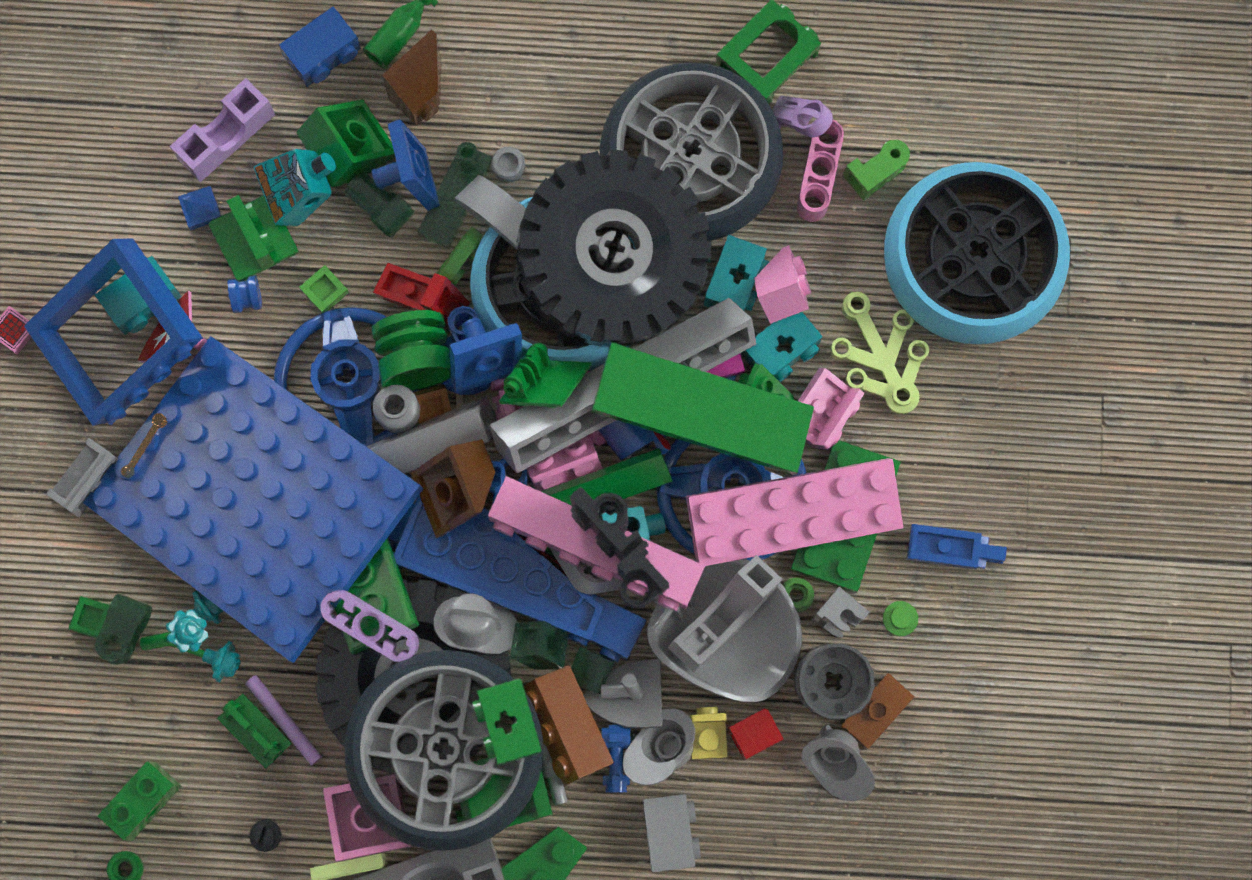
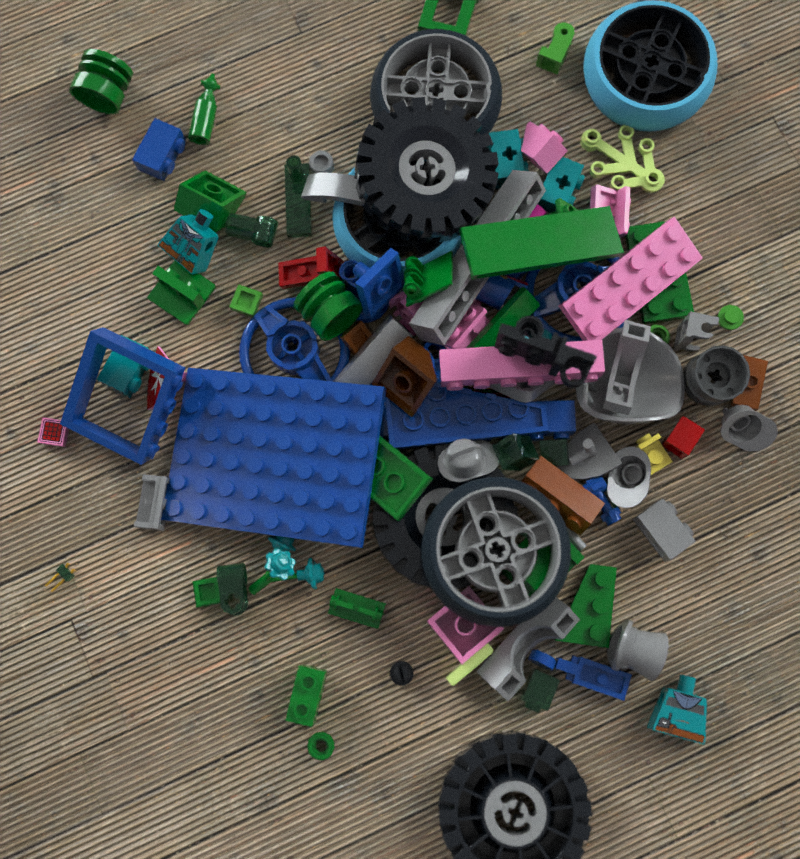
camera: 20 degrees left, 0 degrees up
(158, 421) = (184, 439): clear orange hinge -> none
(199, 207) = (135, 291): blue tile -> none
(241, 117) = (132, 218): lavender arch -> none
(244, 294) = (196, 330): blue wheel -> none
(283, 720) = (372, 591): lavender bar -> none
(351, 604) = (394, 503): lavender beam -> none
(391, 398) = (337, 341): light grey head -> none
(410, 167) = (260, 193): blue tile -> none
(415, 80) = (233, 138): reddish brown slope -> none
(464, 249) = (323, 230): bright green plate -> none
(508, 699) = (548, 515): green brick -> none
(798, 112) = (489, 36): lavender piece -> none
(820, 186) = (522, 57): bright pink beam -> none
(952, 547) = (737, 256): blue hinge -> none

